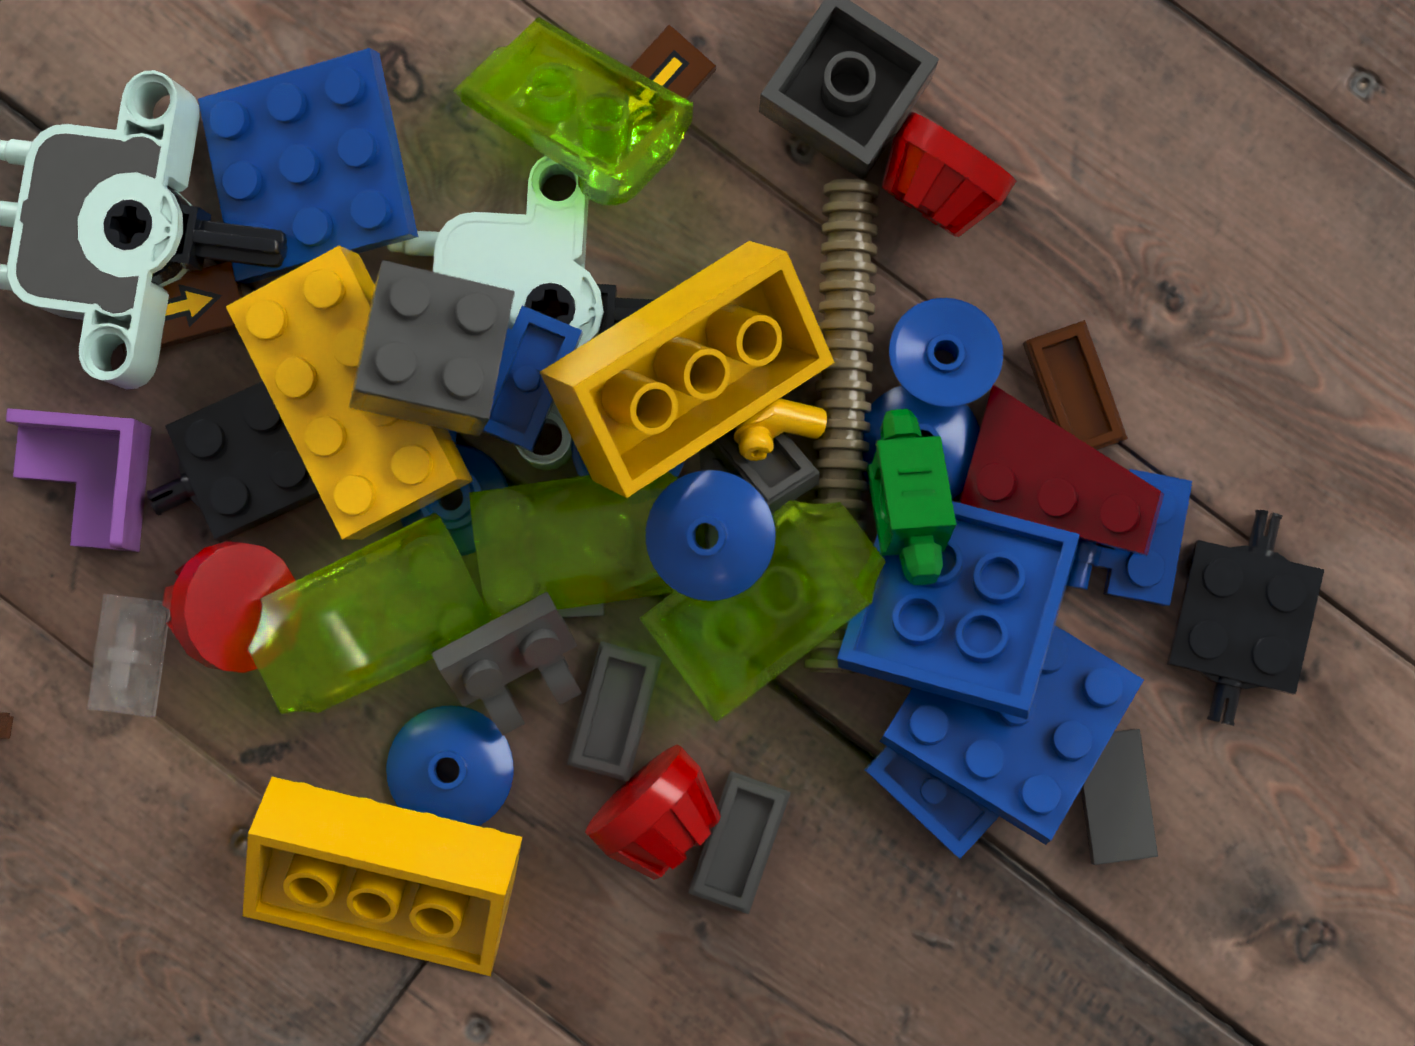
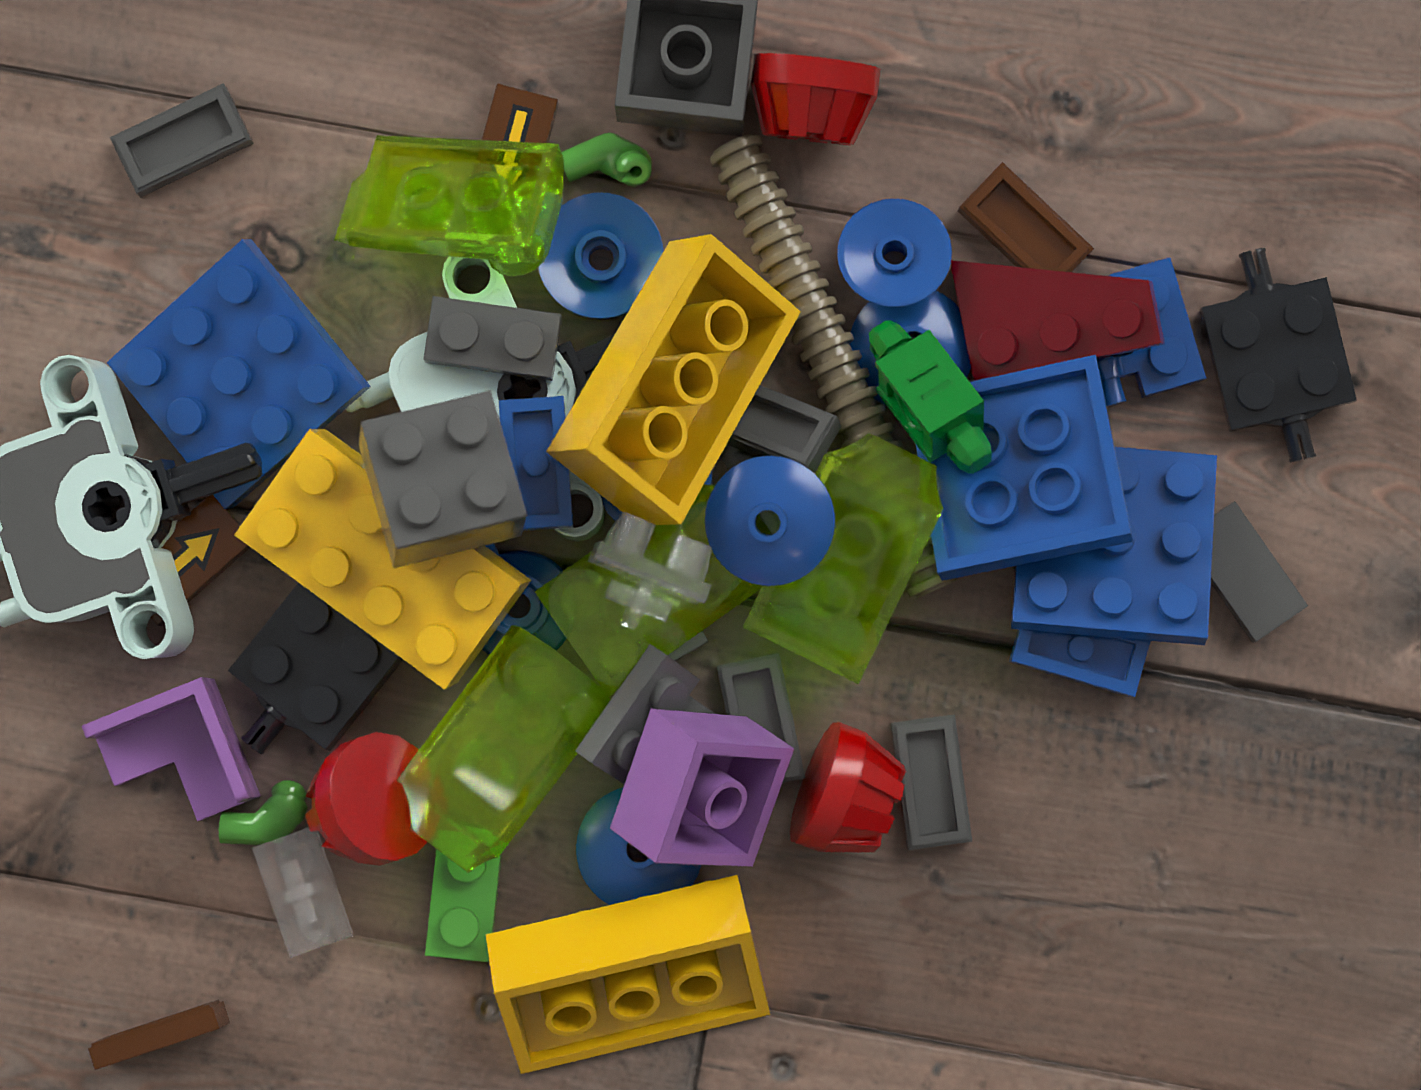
camera: 25 degrees left, 0 degrees up
(135, 579) = (272, 821): none -> bright green arm
(264, 744) = (462, 909): none -> bright green plate
(527, 744) = (701, 788): none -> medium lavender brick
(546, 247) = (492, 338): none -> dark grey plate
(604, 544) = (624, 554): none -> clear hips
(676, 192) = (593, 224): none -> blue dish
(737, 139) = (611, 156): none -> bright green arm
(757, 433) = (780, 381): yellow arm -> none

